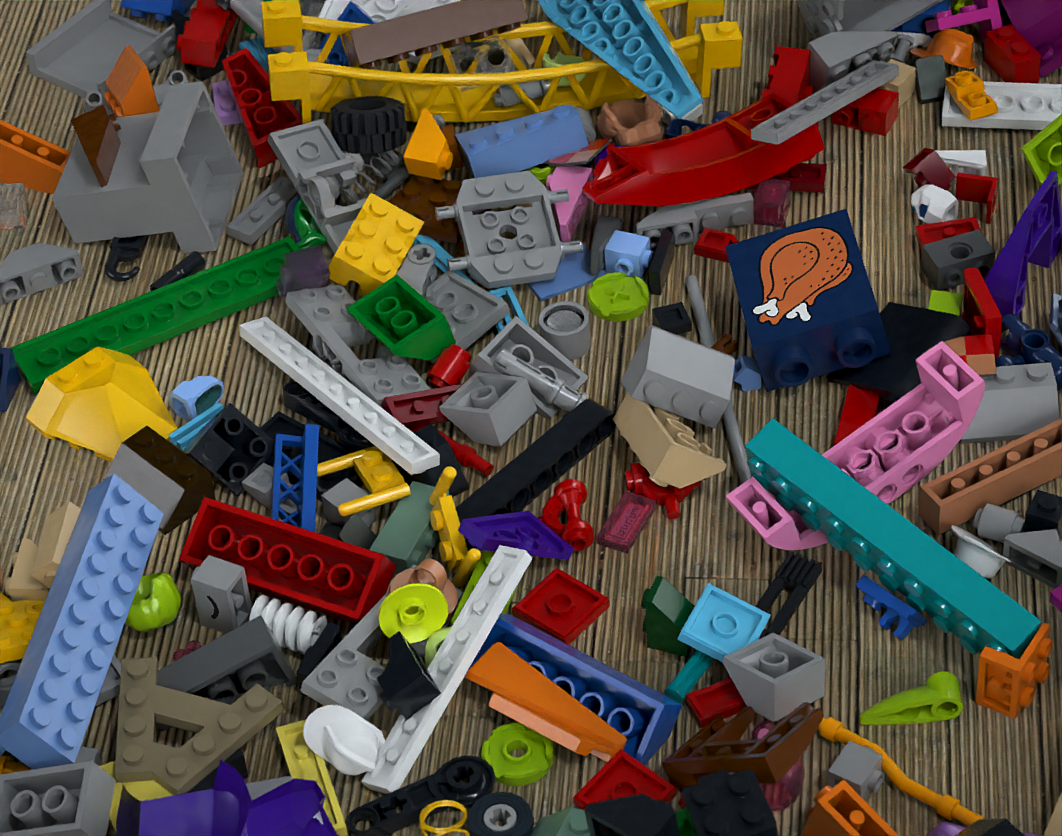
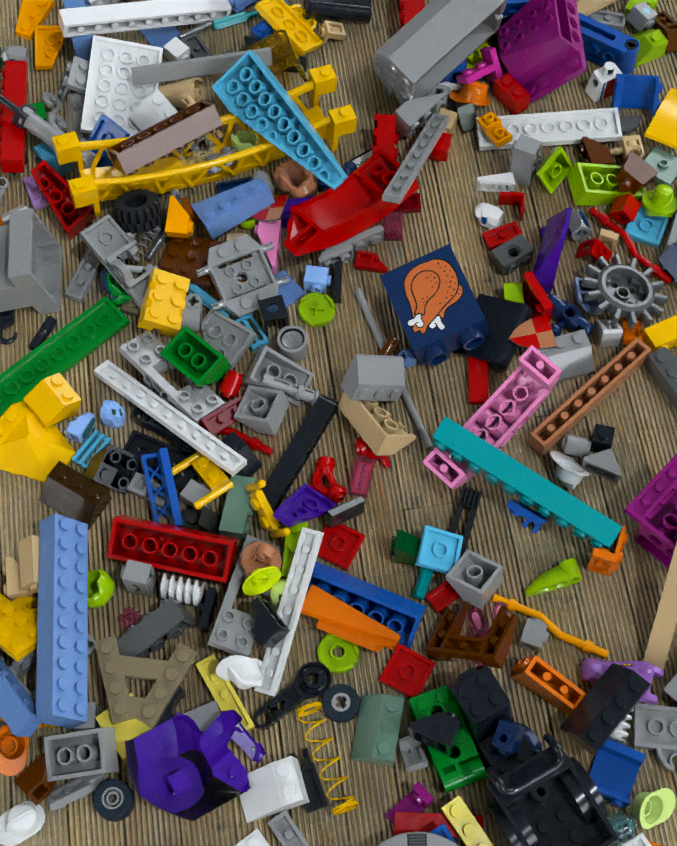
camera: 15 degrees left, 20 degrees up
(164, 352) = (53, 400): none -> yellow slope
(250, 384) = (112, 414): none -> light blue rock
(303, 270) = (125, 331): clear purple brick -> none
(530, 279) = (266, 316): none -> black piece
(583, 558) = (345, 512): none -> black tile
(603, 232) = (299, 268): dark grey slope -> none
(672, 318) = (353, 324): black plate -> none
(930, 169) = (482, 192): dark red brick -> none
(1006, 129) = (525, 159): none -> light grey wedge

